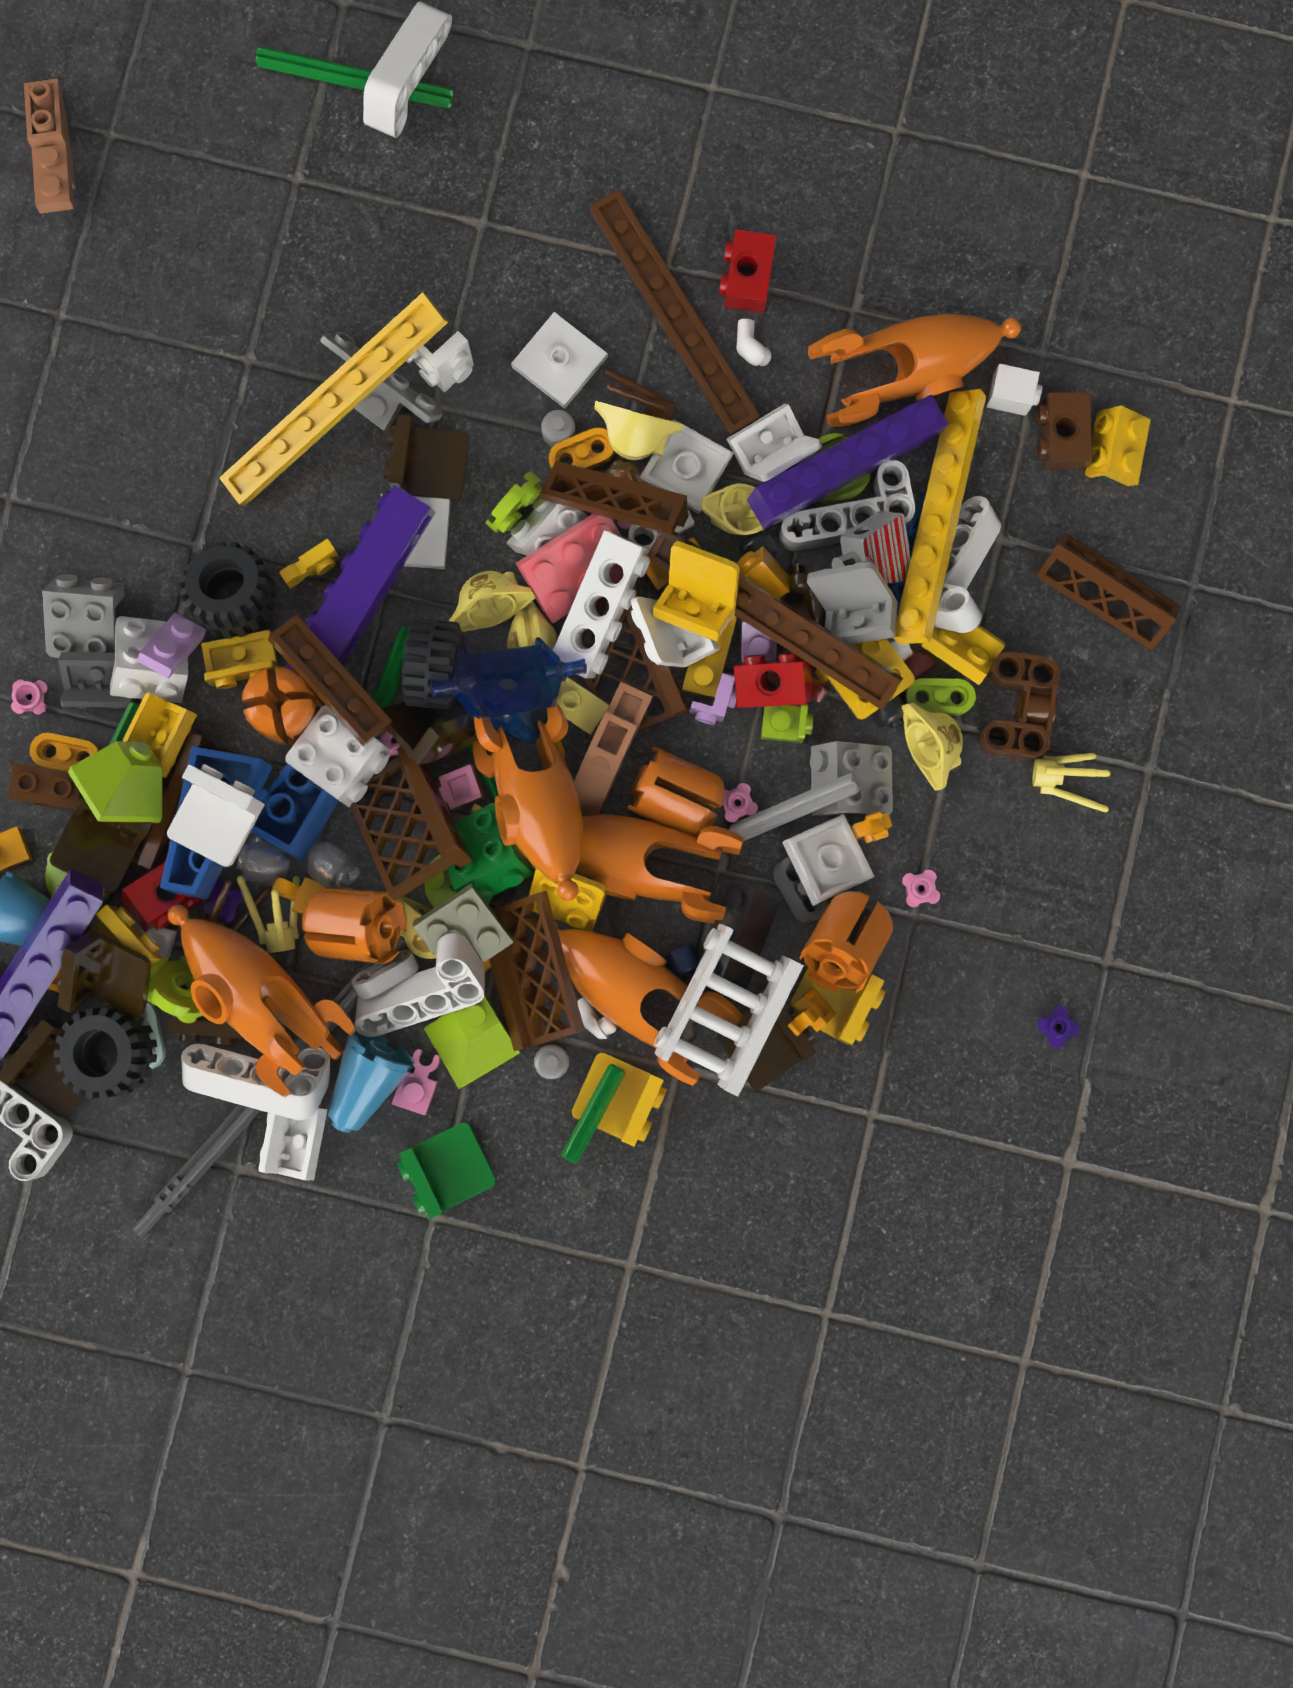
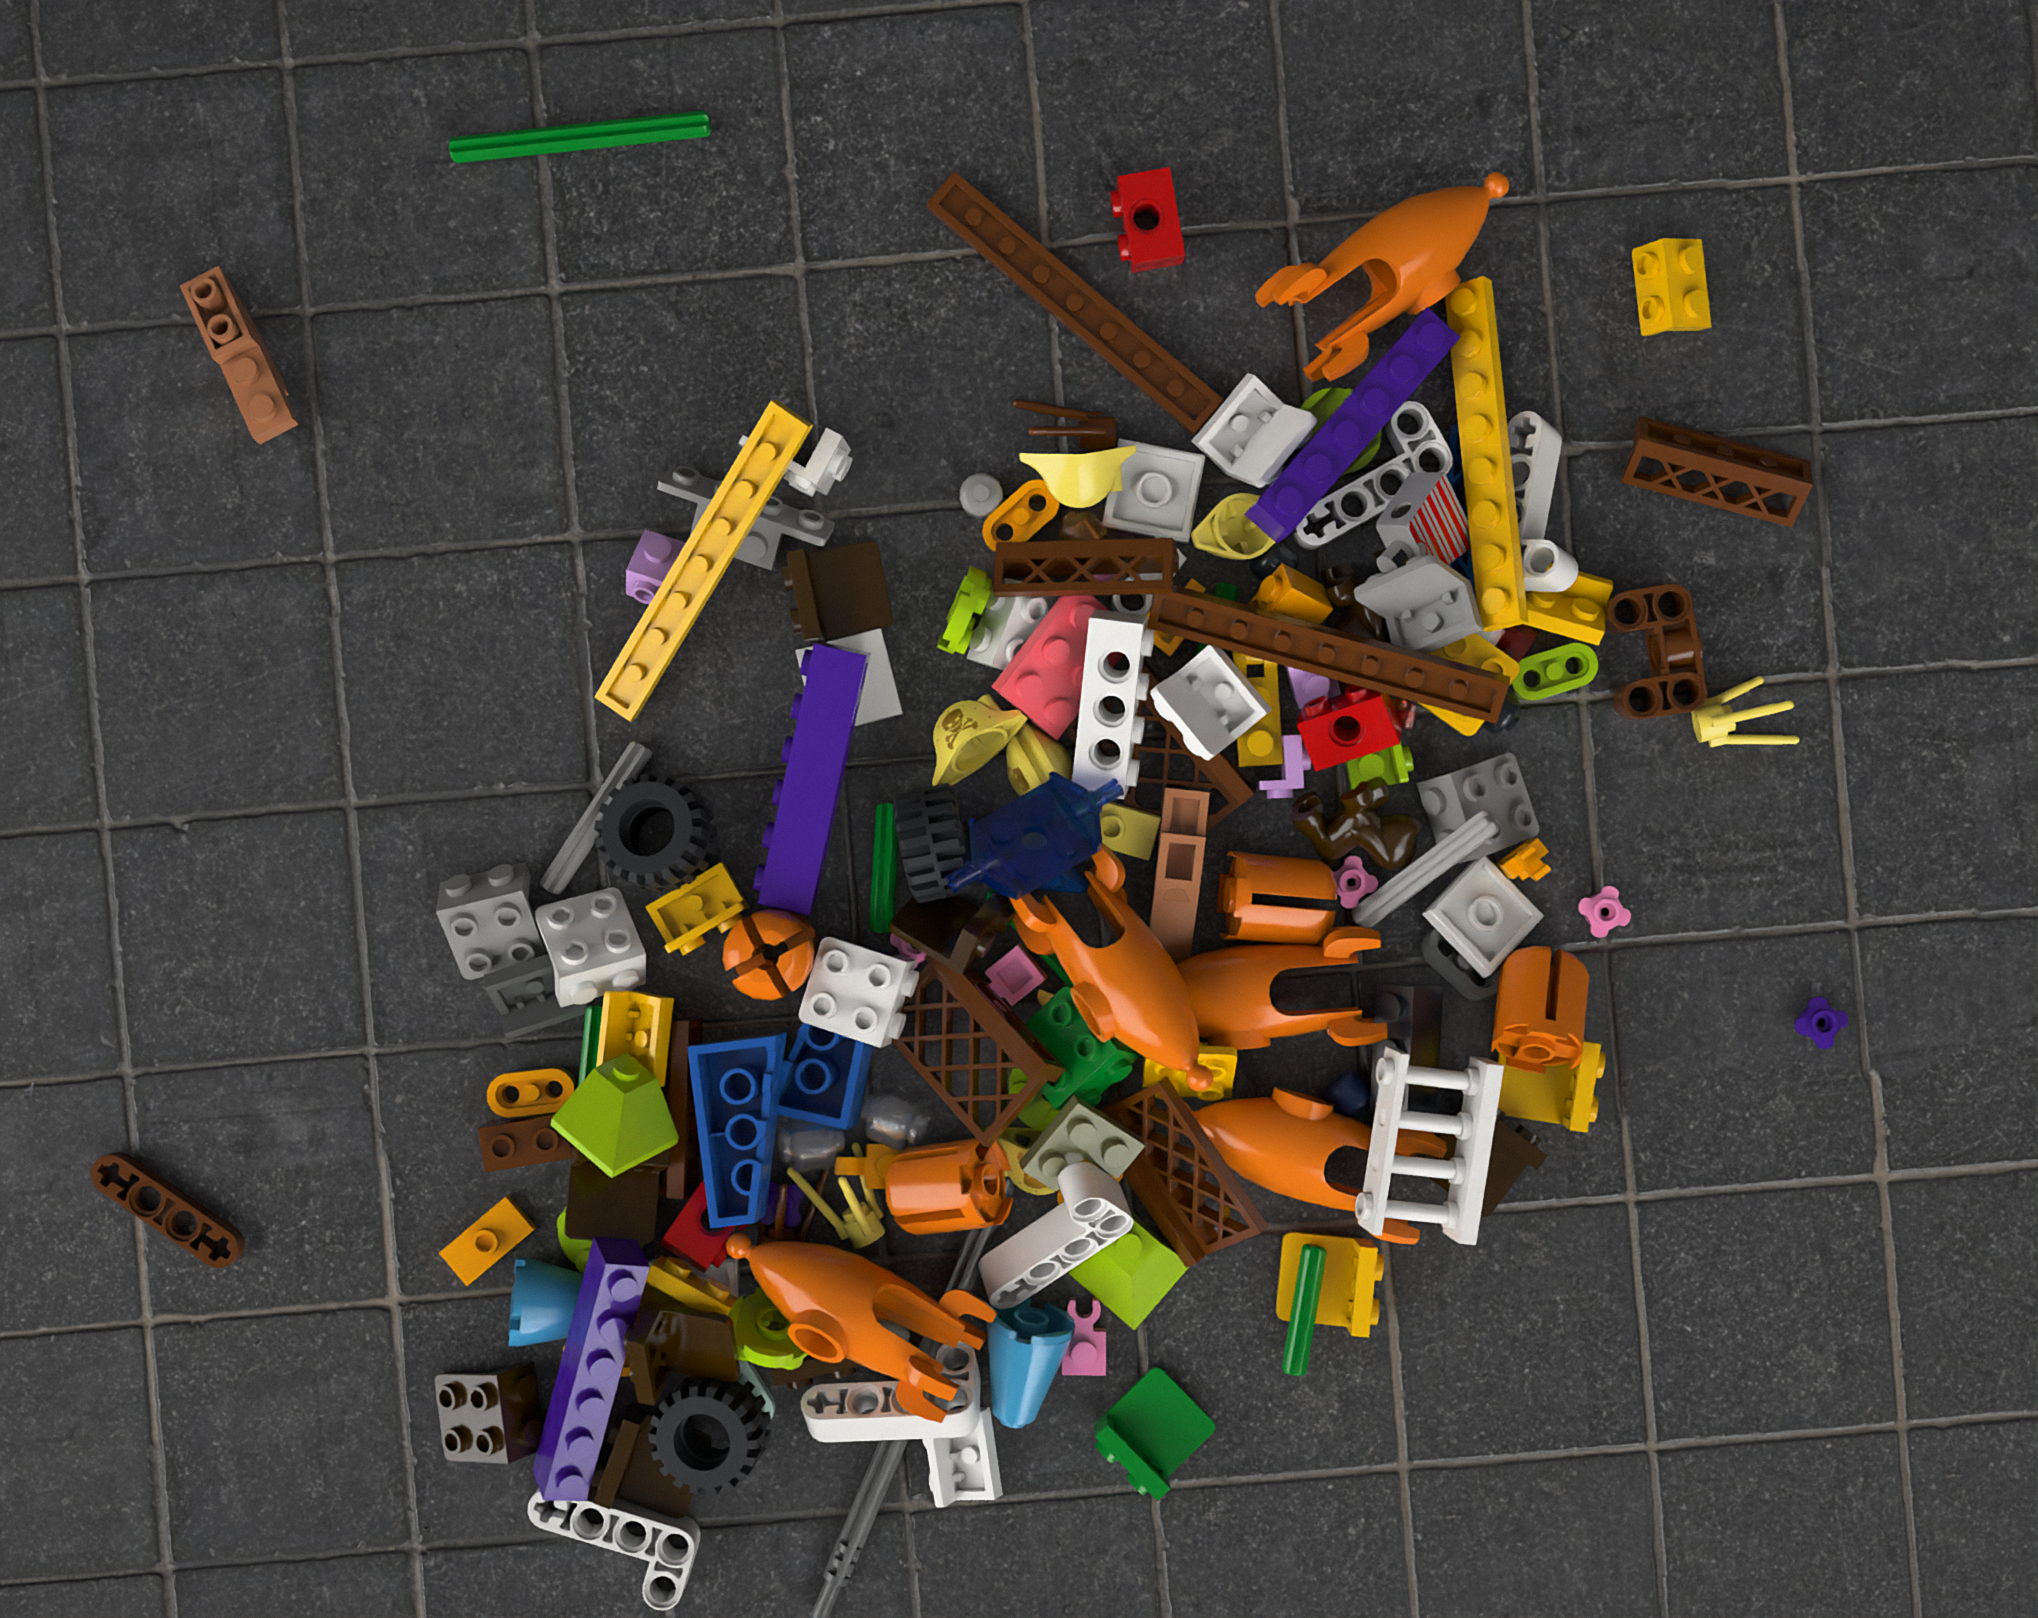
camera: 15 degrees left, 5 degrees up
(19, 696) = (454, 1046): bright pink plate -> none
(169, 581) = (584, 835): none -> light grey axle
(171, 645) = (614, 925): lavender plate -> none
(214, 815) = (747, 1126): white bracket -> none
(292, 394) = (651, 564): none -> lavender bracket
(315, 561) = (749, 758): yellow plate -> none
(330, 680) = (822, 910): reddish brown fence -> none
(384, 976) = (995, 1243): light grey beam -> none
(403, 67) = (639, 105): white beam -> none
(551, 1061) = (1233, 1264): light grey piece -> none
(559, 360) = (953, 409): white plate -> none
(598, 1027) = (1264, 1200): white arm -> none
(699, 591) = (1229, 656): yellow bracket -> none
(749, 347) = (1179, 314): white arm -> none
(774, 777) = (1386, 838): none -> dark brown animal
(812, 1011) = (1526, 1106): light orange plate -> none
(933, 743) = (1564, 732): light yellow hat -> none
(1014, 390) = (1523, 260): white brick -> none
(1073, 413) = (1609, 266): reddish brown brick -> none

